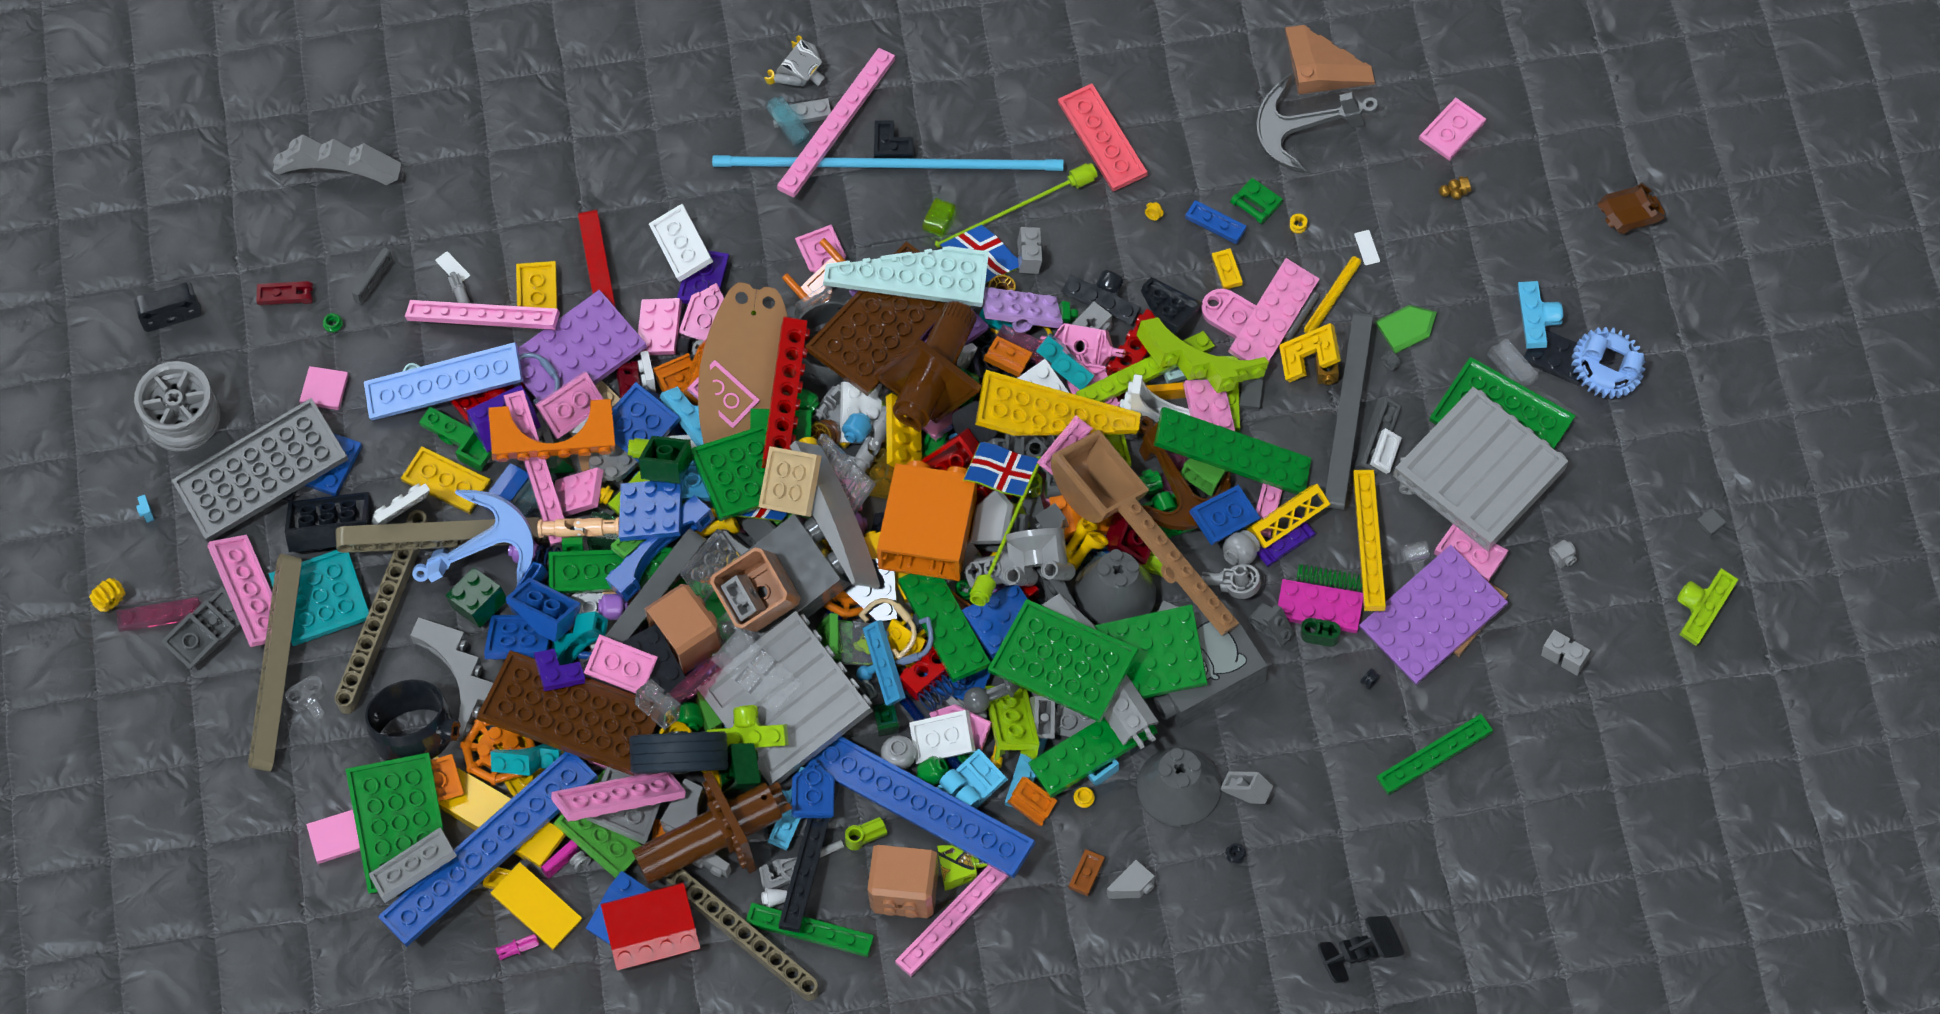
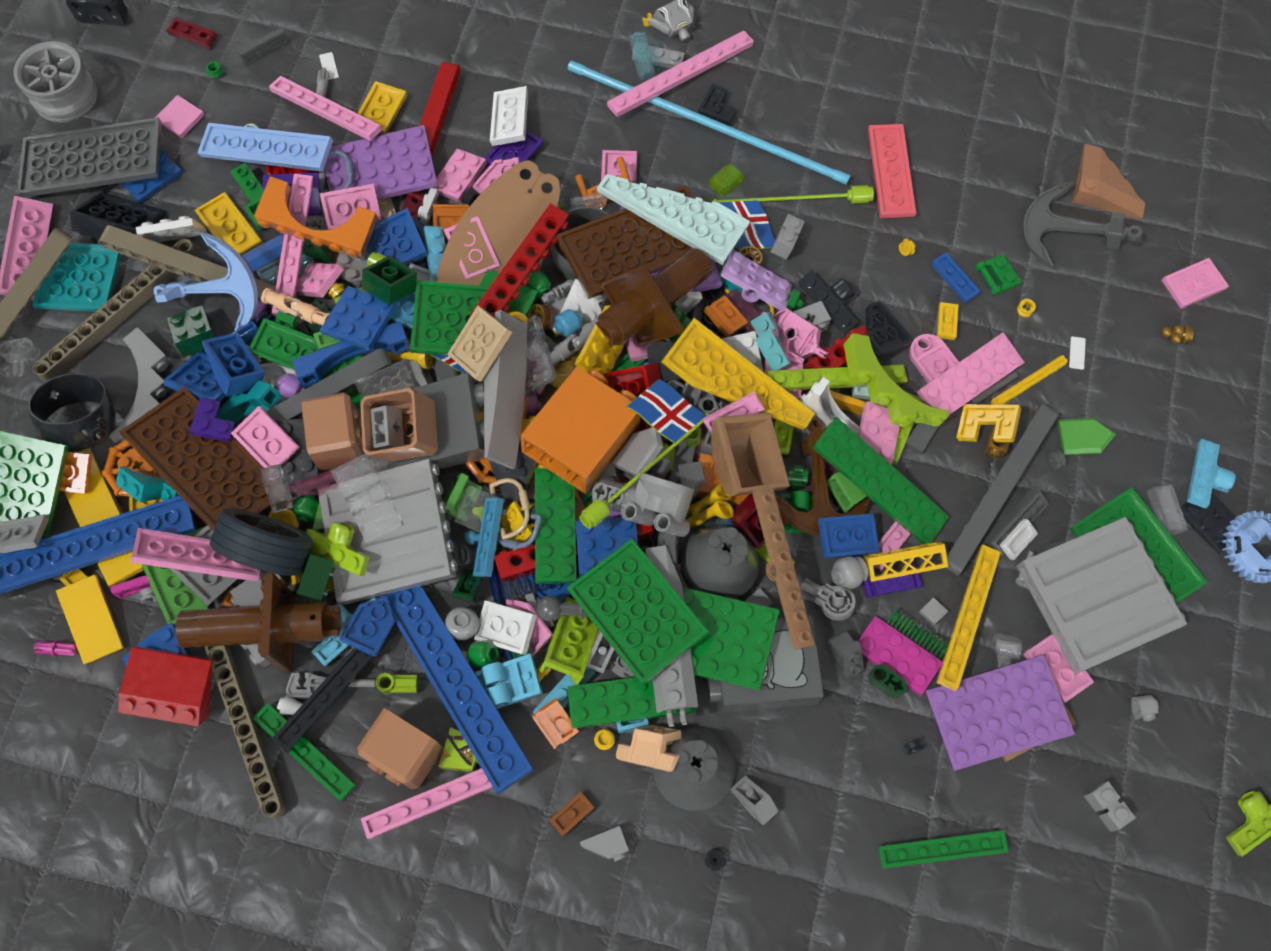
camera: 20 degrees right, 5 degrees up
(1131, 781) = (649, 748): none -> light nougat plate
(1335, 552) = (933, 611): none -> light grey tile

